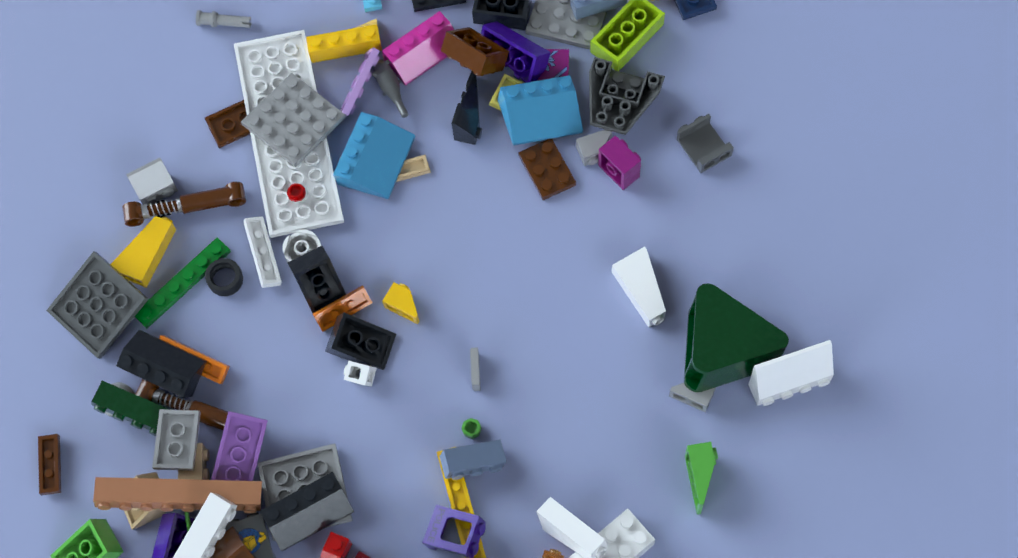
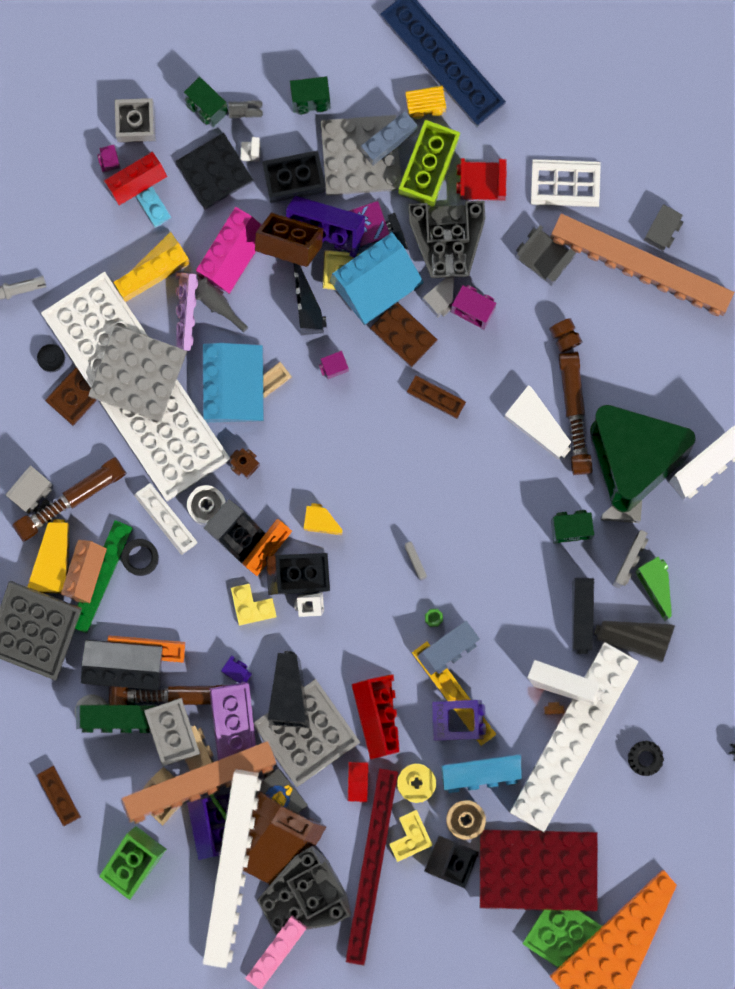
camera: 25 degrees left, 15 degrees up
(166, 268) = (83, 571): none -> nougat brick
(225, 84) = (51, 358): none -> black plate
(264, 407) = (236, 671): none -> dark purple brick
(296, 192) = (174, 449): red plate -> none
(301, 360) = (247, 609): none -> light yellow plate
(302, 445) = (288, 695): none -> black slope
(307, 511) = (319, 752): black slope -> none
(354, 227) = (245, 469): none -> reddish brown brick
(378, 499) = (377, 715): none -> red wedge
(471, 172) = (333, 365): none -> magenta brick
(554, 231) = (436, 397): none -> reddish brown plate
(574, 72) = (394, 226): none -> black plate
(616, 475) = (582, 614): none -> black slope
(637, 388) = (572, 527): none -> dark green brick
(665, 520) = (642, 639): none -> clear smoke slope
(670, 63) = (482, 180): none -> red panel
(679, 442) = (631, 559): none -> light grey plate
(680, 288) = (574, 405): none -> reddish brown piece
(696, 214) = (565, 334): none -> reddish brown wheel
(751, 76) = (565, 200): none -> white piece
(793, 181) = (642, 265): none -> nougat brick
(824, 155) = (663, 228): none -> dark grey brick

